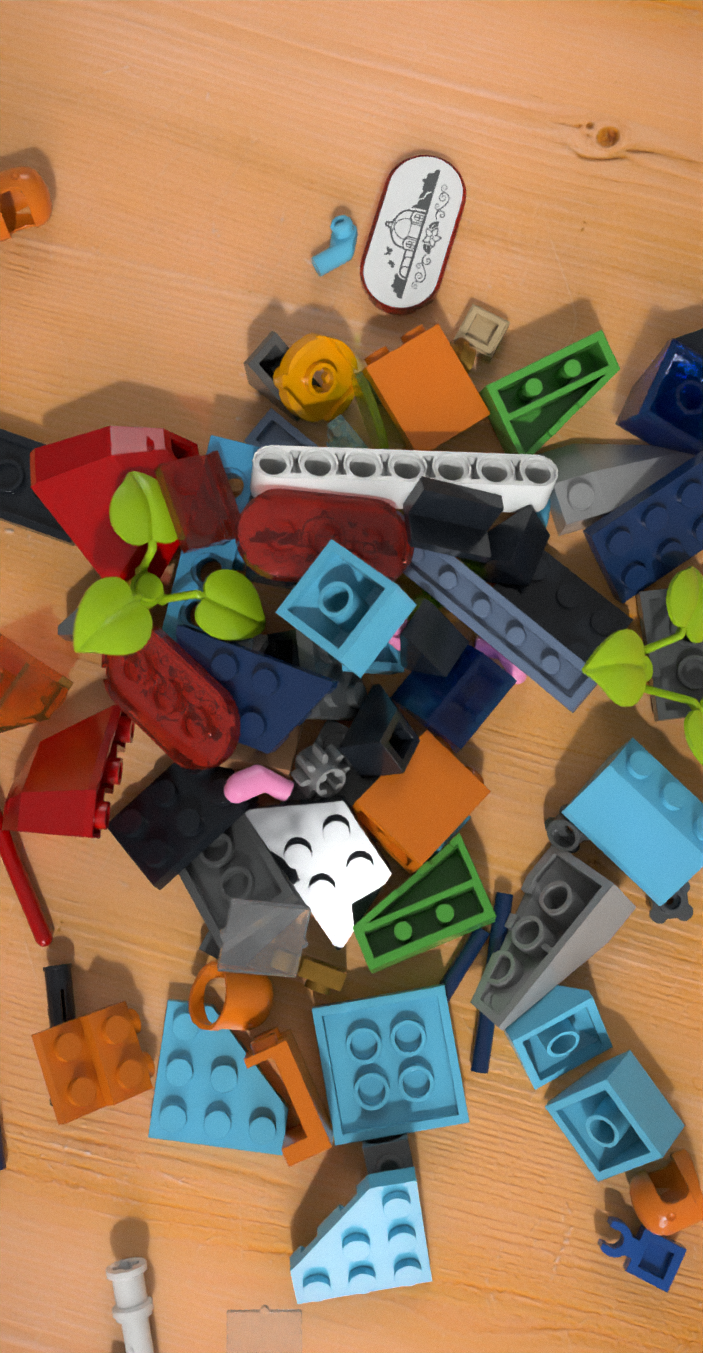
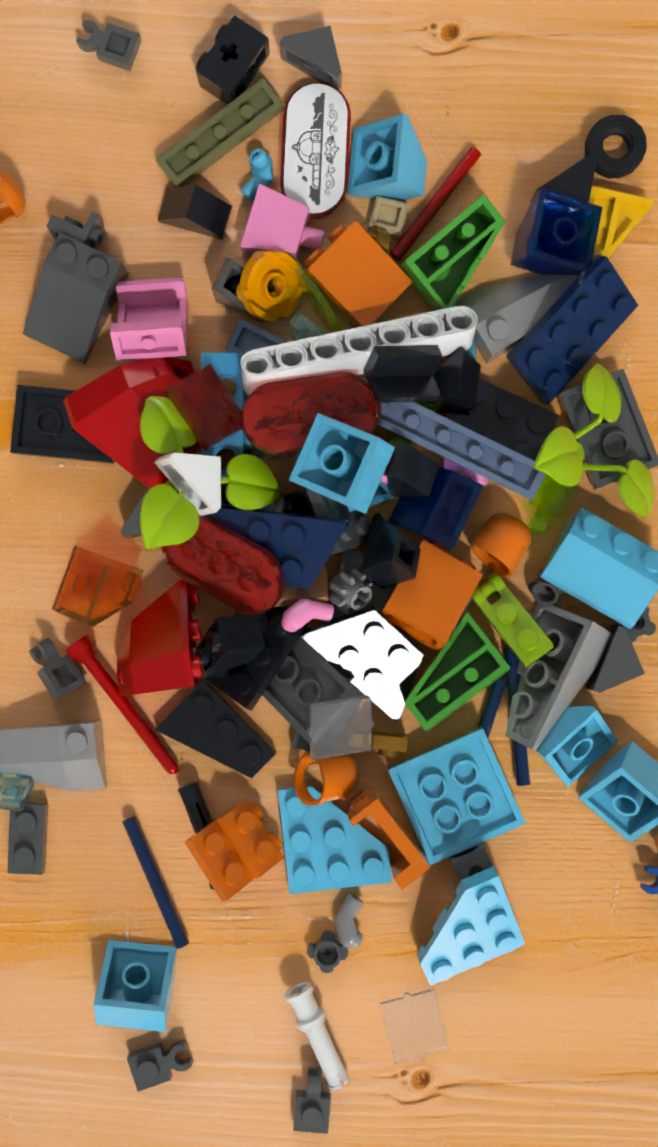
camera: 15 degrees left, 5 degrees up
(78, 336) = (73, 297): none -> dark grey slope
(101, 264) = (91, 235): none -> dark grey bracket
(112, 906) = (218, 731): none -> black wing
(153, 798) = (229, 643): none -> black slope
(162, 382) = (150, 319): none -> bright pink panel
(163, 581) = (196, 476): none -> white slope
(172, 1238) = (324, 961): none -> dark grey plate
(203, 58) = (114, 45): none -> dark grey plate
(208, 1200) = (344, 922): none -> light grey arm
(251, 270) = (195, 211): none -> black slope
(303, 188) = (220, 134): none -> olive plate
(340, 108) = (232, 42): none -> black brick
(346, 309) = (279, 225): none -> bright pink torso
(438, 123) = (313, 54): none -> dark grey slope
(495, 266) = (387, 161): none -> medium azure slope
(513, 859) = (511, 621): none -> lime plate
(529, 755) = (503, 538): none -> orange helmet
(541, 331) = (435, 203): none -> red bar
(598, 720) = (550, 500): none -> clear neon green plate
(633, 946) = (617, 663): none -> dark grey slope

